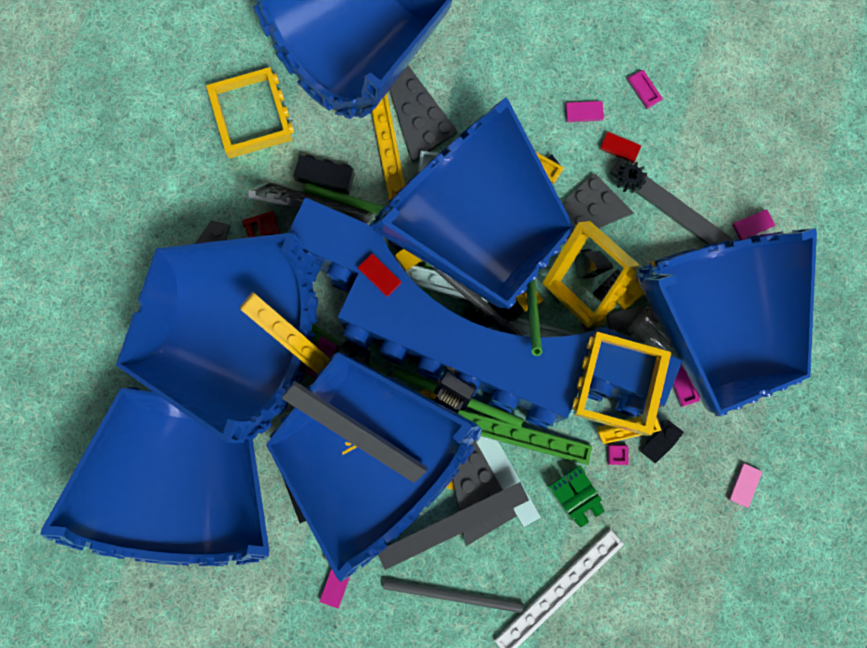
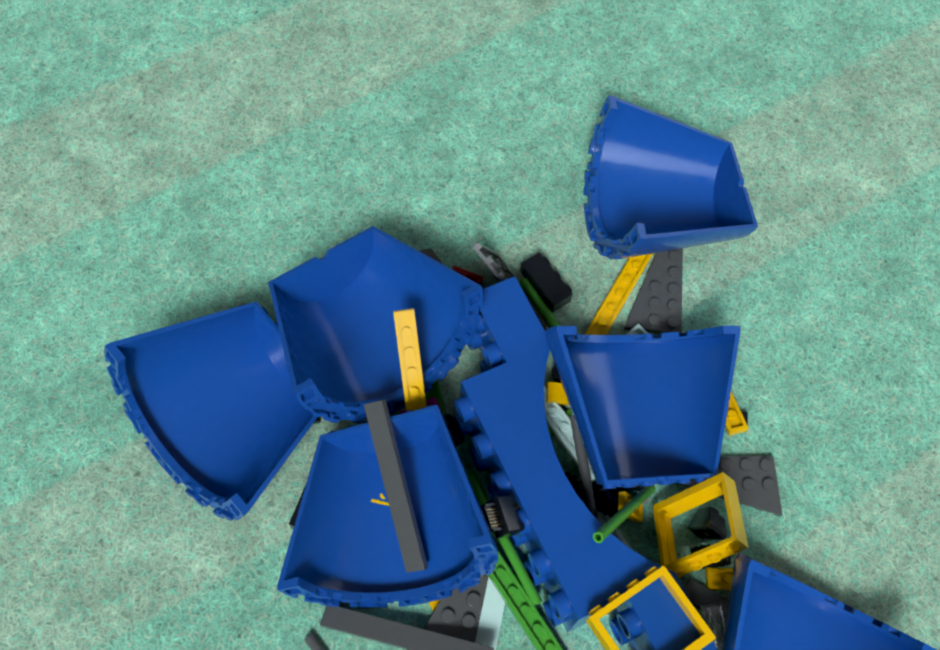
camera: 40 degrees right, 15 degrees down
(260, 142) = (518, 223): yellow window -> none
(333, 591) = (268, 604): dark pink tile -> none
(379, 275) = (521, 377): red tile -> none
(584, 111) = (804, 401): dark pink tile -> none
(620, 147) = (813, 454): red tile -> none
(637, 177) = (806, 475): black gear -> none
(644, 89) = (873, 425): dark pink tile -> none
(678, 210) = (820, 534): dark grey tile -> none
(753, 224) = (890, 615): dark pink tile -> none

